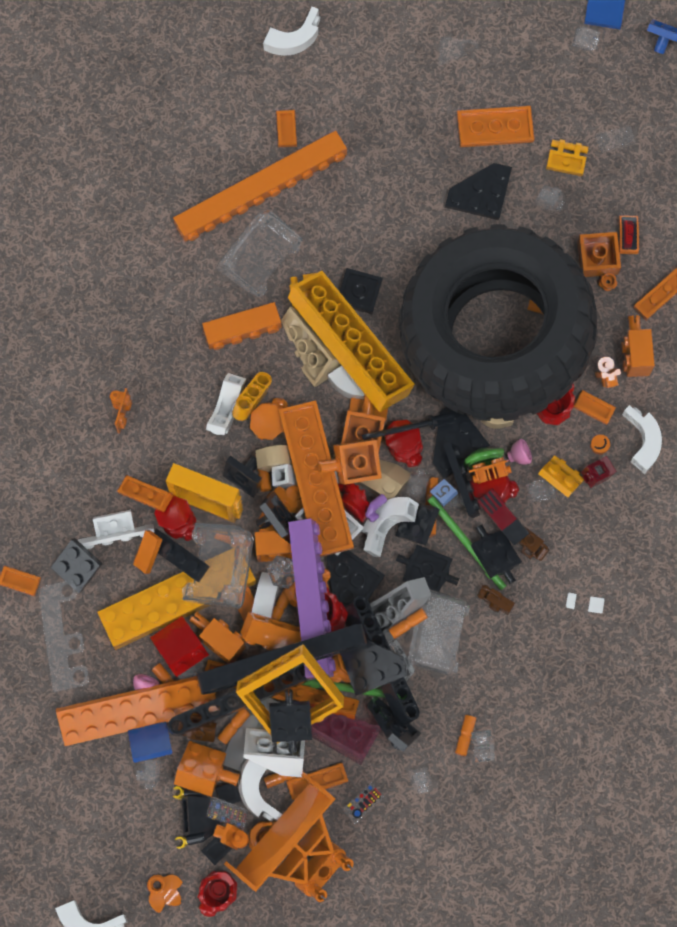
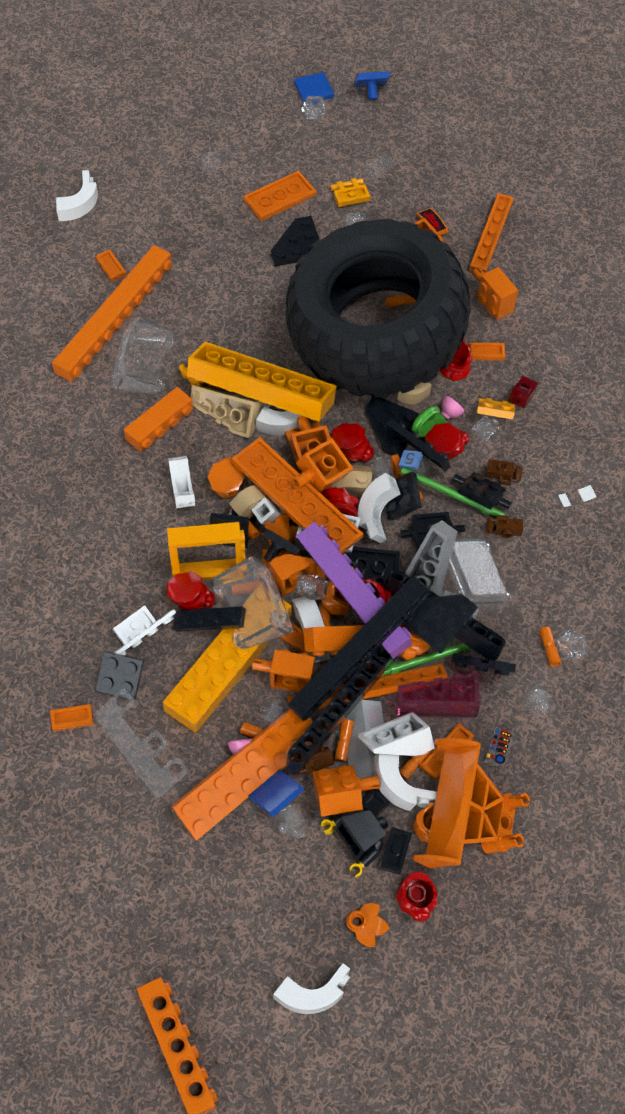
camera: 30 degrees left, 15 degrees down
(122, 402) = (86, 524): orange hinge -> none
(145, 493) = (149, 585): orange tile -> none
(147, 551) = (179, 631): orange tile -> none
(179, 646) = (255, 694): red brick -> none
(227, 812) = (385, 817): clear tile -> none
(231, 836) = (404, 832): orange hips -> none
(251, 396) = (200, 464): light orange beam -> none
(276, 668) = (360, 655): light orange window -> none
(290, 721) = (400, 695): black plate -> none
(361, 290) = (244, 344): black plate -> none
(373, 506) = (359, 495): medium lavender arm -> none
(405, 625) = (450, 566): orange piece -> none
(433, 421) = (365, 414): black piece -> none
(500, 465) = (434, 423): orange hinge -> none
(503, 516) = (471, 456): tile -> none
(600, 444) = (509, 375): orange tile -> none
(608, 372) = (484, 321): hips -> none
(651, 438) = (545, 349): white arch -> none

